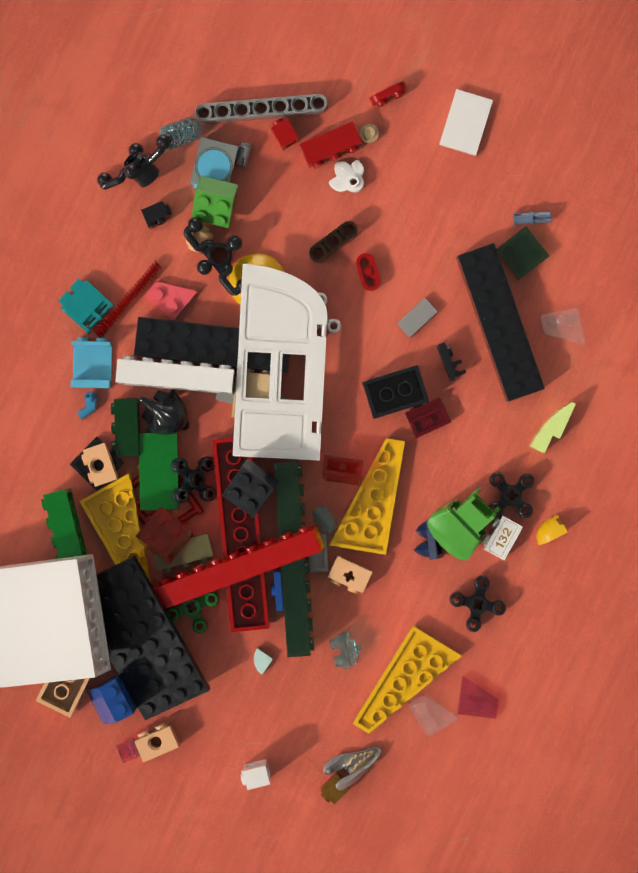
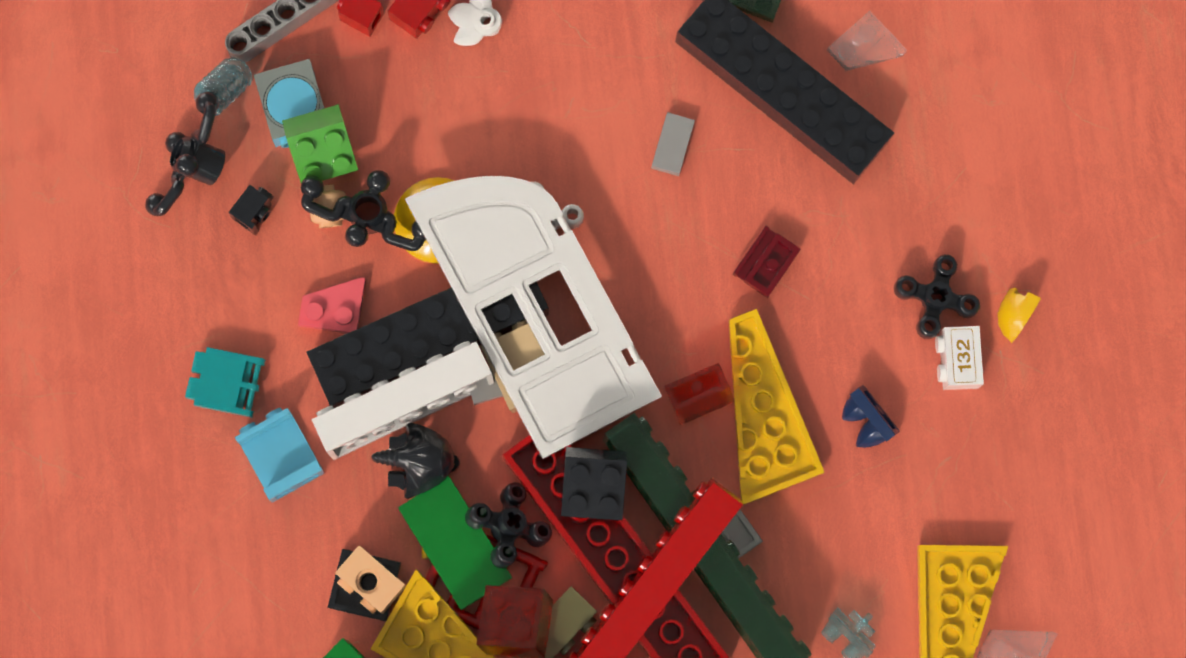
camera: 40 degrees left, 10 degrees down
(90, 405) = (310, 511): dark azure arm -> none
(125, 427) = (375, 511): dark green brick -> none
(127, 301) = (273, 348): red piece -> none
(244, 153) = (322, 67): light grey pin -> none
(277, 590) = (712, 603): blue plate -> none
(325, 518) = (715, 468): clear light blue brick -> none
(326, 248) = (509, 97): dark brown beam -> none
(360, 574) = (808, 518): light nougat brick -> none
(368, 272) = (574, 123): red plate -> none
(395, 391) = (704, 251): black brick -> none
(446, 353) = (739, 168): black plate -> none
(461, 528) = (899, 370): bright green piece -> none
(476, 701) = (1064, 596): clear pink wing -> none
(485, 604) = (994, 460): black gear -> none
(552, 427) = (934, 181): yellowish green slope -> none

